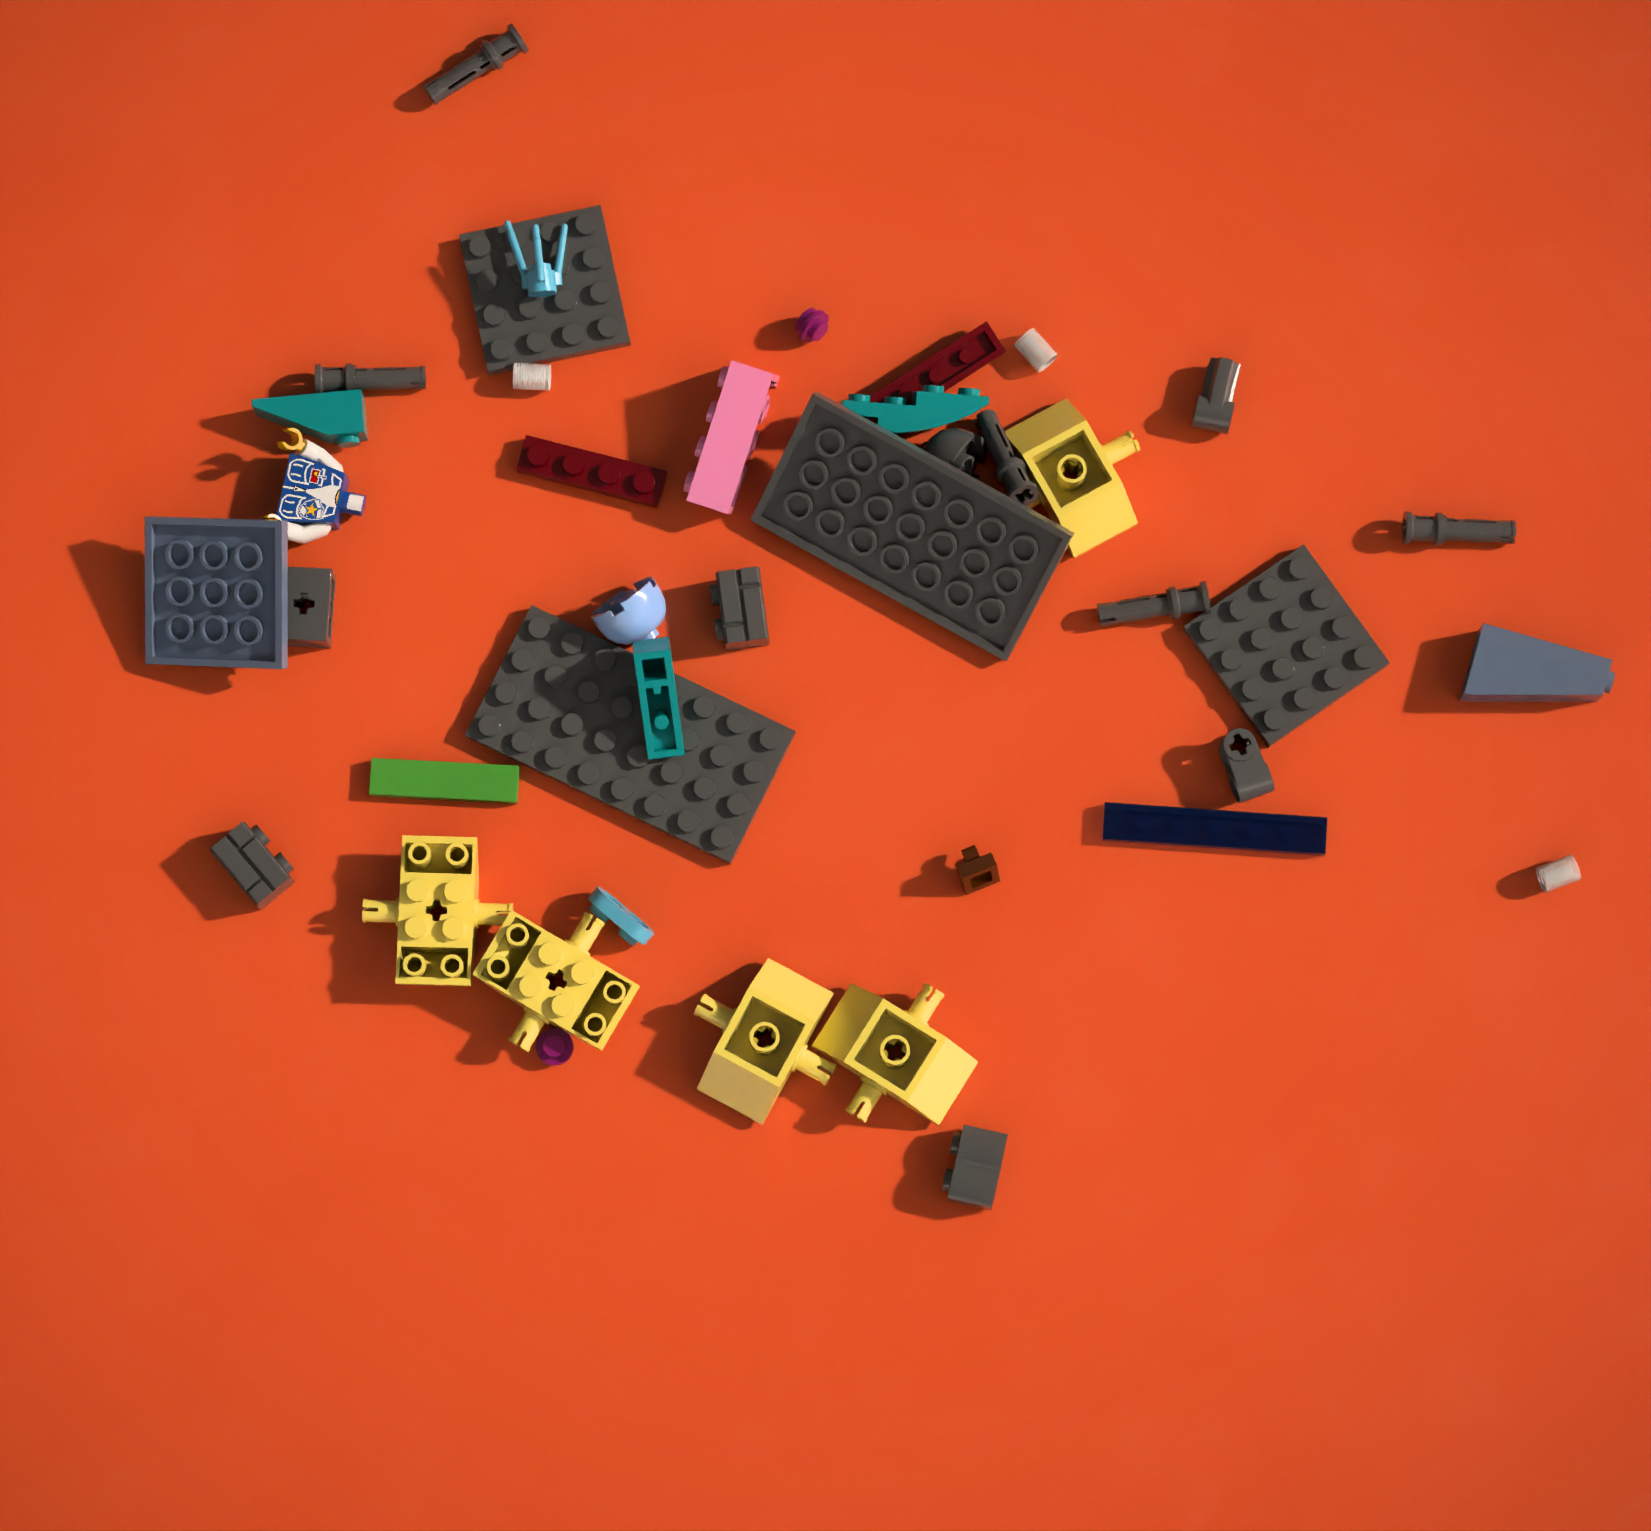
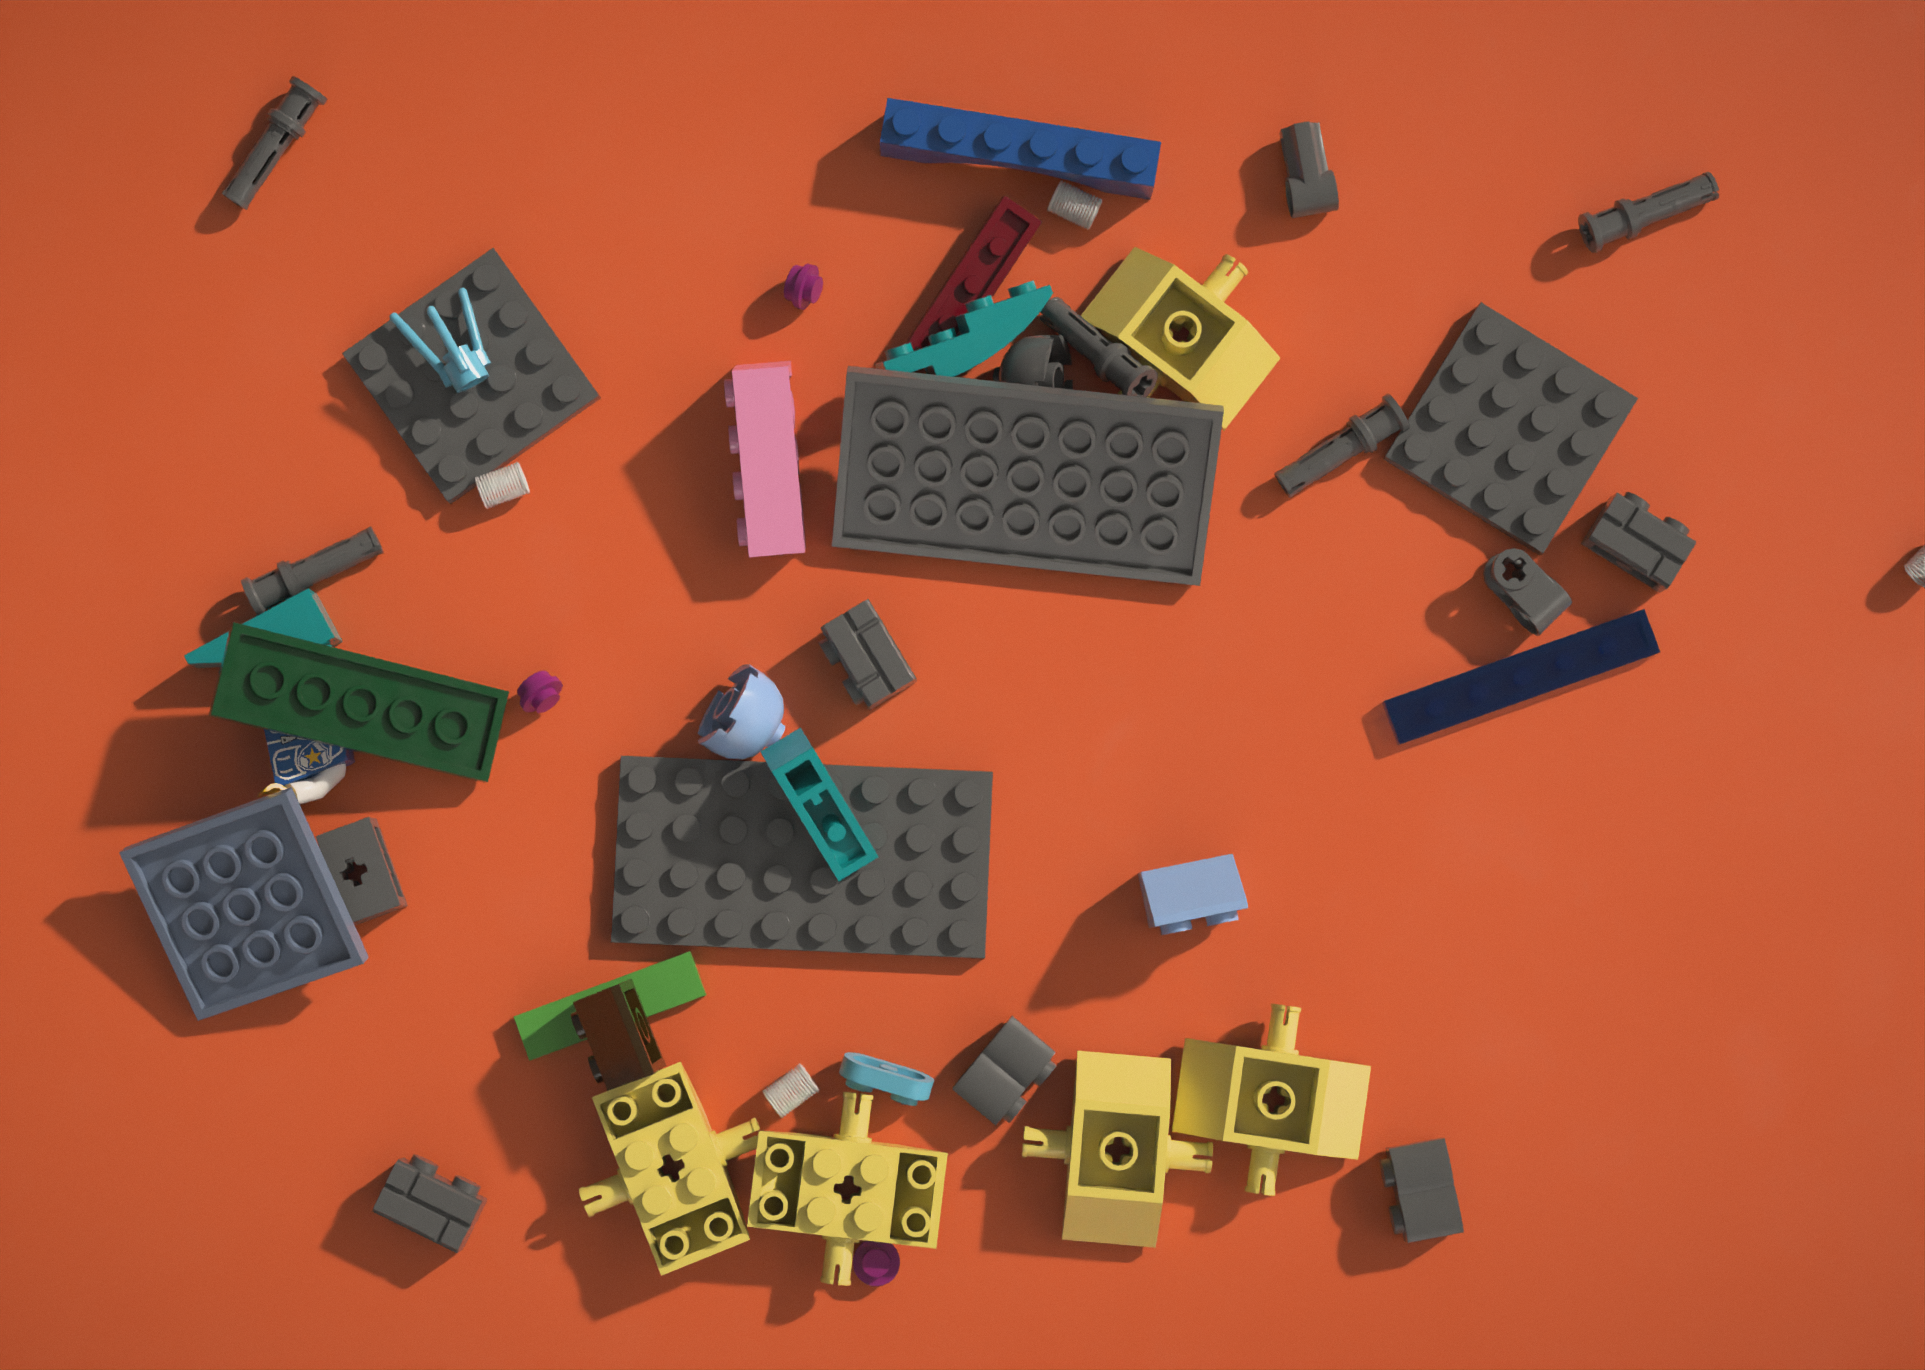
camera: 30 degrees left, 5 degrees up
(361, 484) = (358, 703): none -> dark green plate
(441, 797) = (617, 1035): none -> dark brown slope
(493, 534) = (539, 692): none -> magenta plate
(555, 902) = (806, 1093): none -> white piece
(591, 471) = (621, 567): dark red plate -> none
(709, 948) = (1004, 1072): none -> dark grey brick
(900, 879) = (1191, 892): none -> light blue slope
(977, 871) = (1274, 844): reddish brown tile -> none
(1057, 317) = (961, 136): none -> blue arch
(1344, 765) = (1639, 541): none -> dark grey brick
(1529, 669) = (1793, 339): sand blue slope -> none

